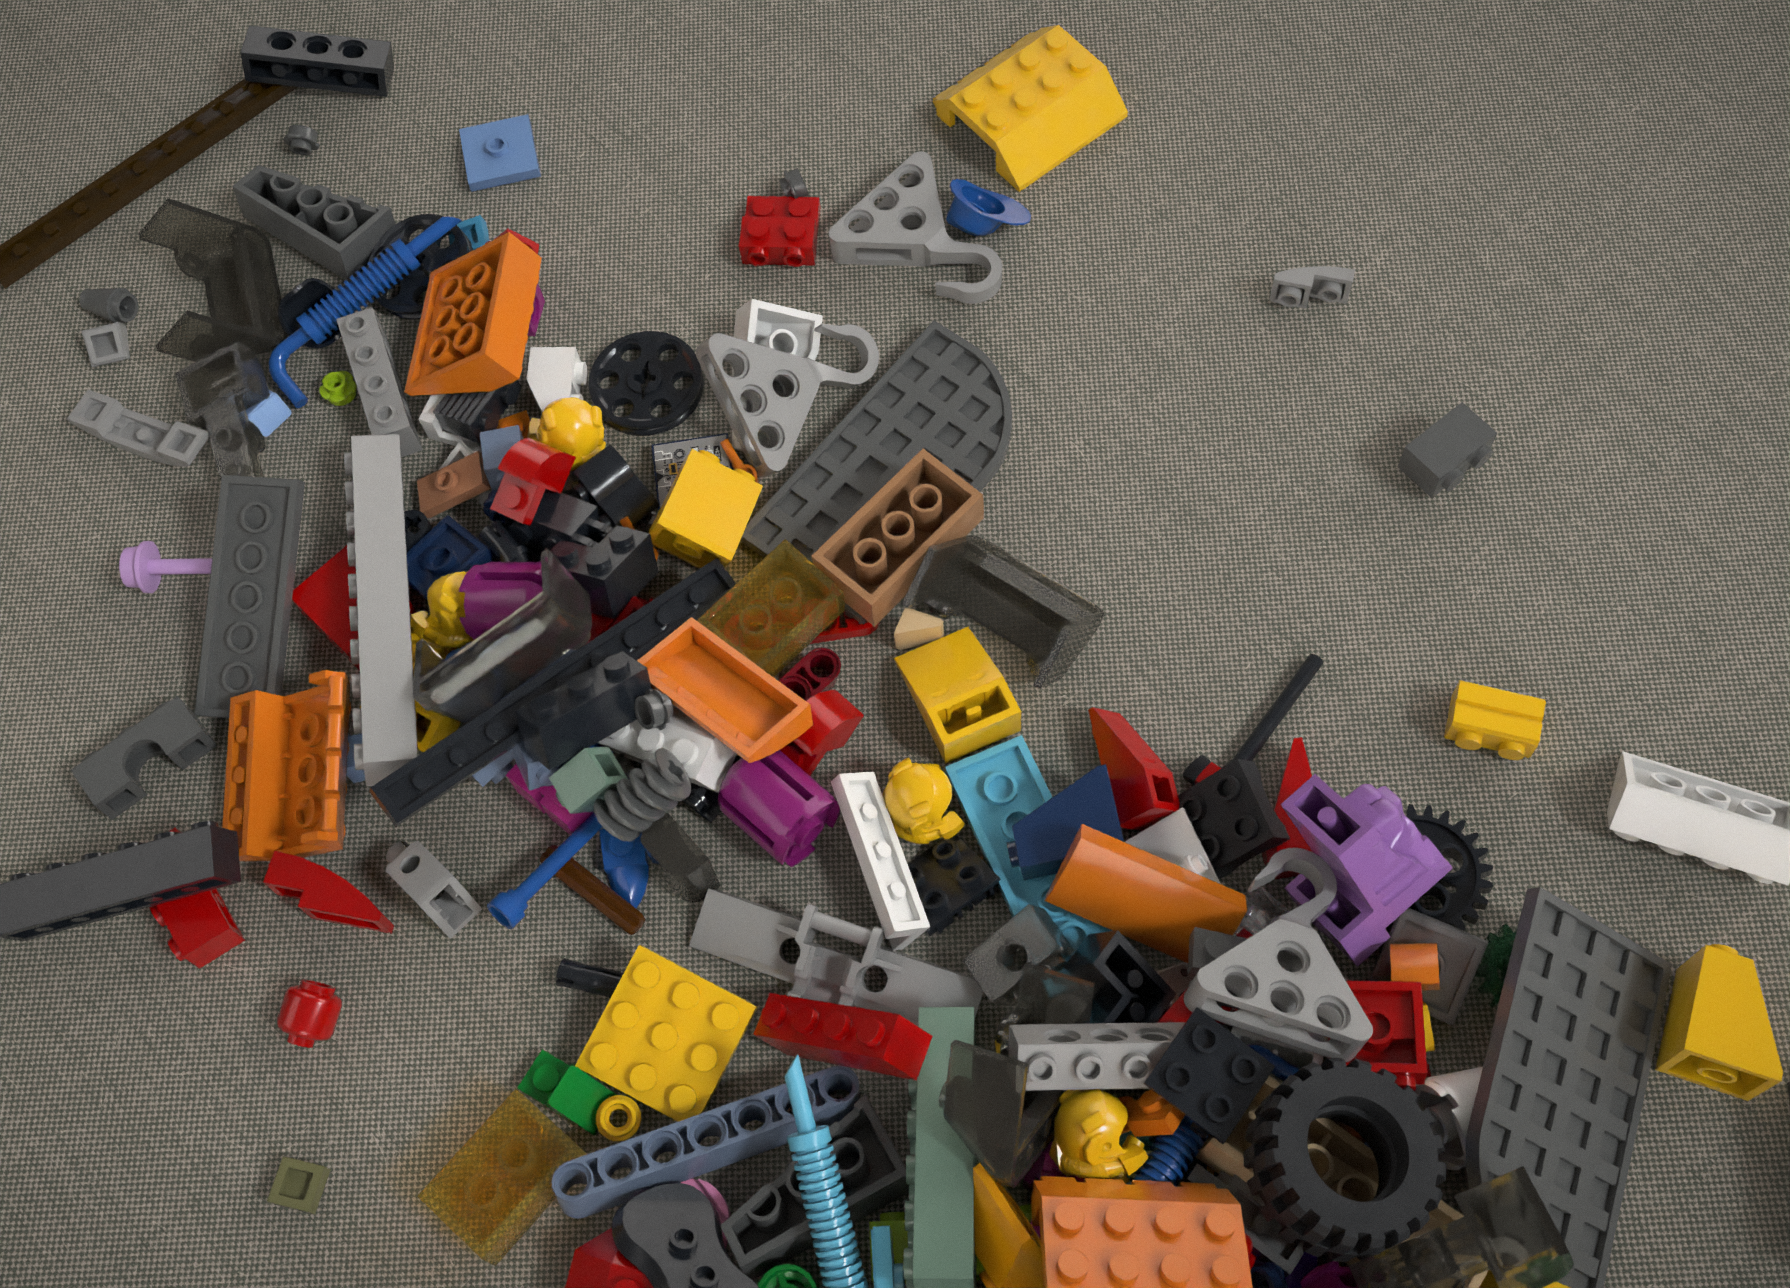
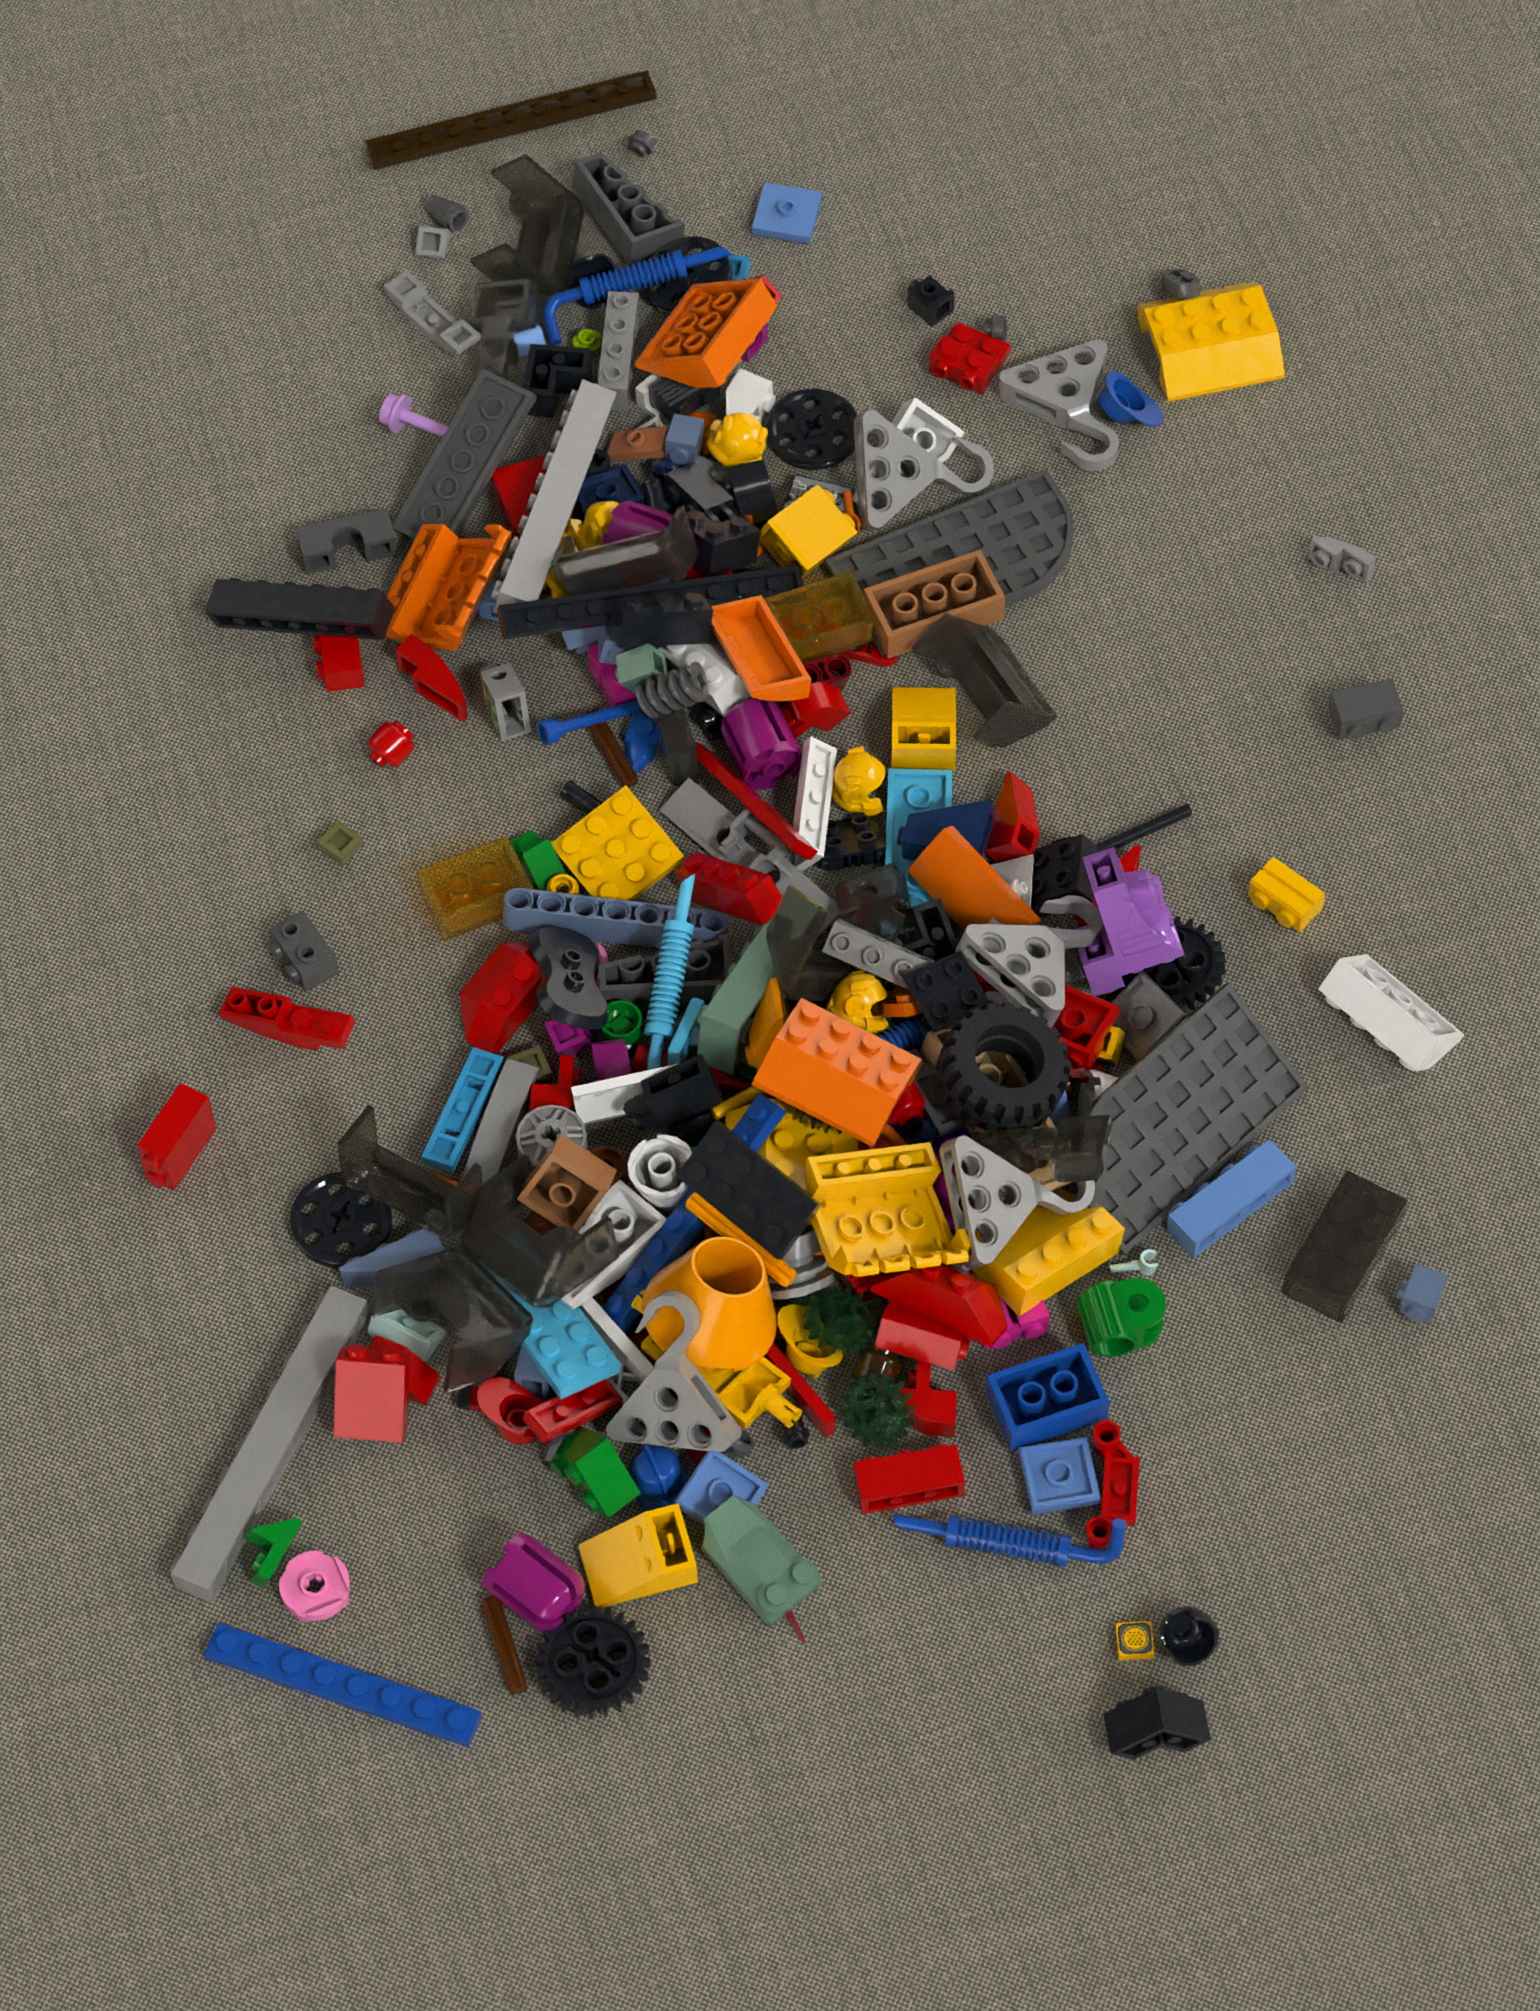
camera: 20 degrees right, 5 degrees down
(313, 438) = (555, 371): none -> black brick
(317, 61) = (681, 86): black brick -> none
(529, 471) = (696, 452): red brick -> none
(653, 709) = (705, 640): dark grey plate -> none
(705, 184) = (930, 300): none -> black brick
(814, 895) = (755, 803): none -> red tile
(917, 629) = (916, 673): tan slope -> none
(968, 58) = (1180, 283): none -> dark grey beam
(1415, 964) = (1132, 1006): orange brick -> none
(1676, 1171) = (1230, 1197): none -> medium blue brick
(1719, 1026) = (1306, 1121): yellow slope -> none

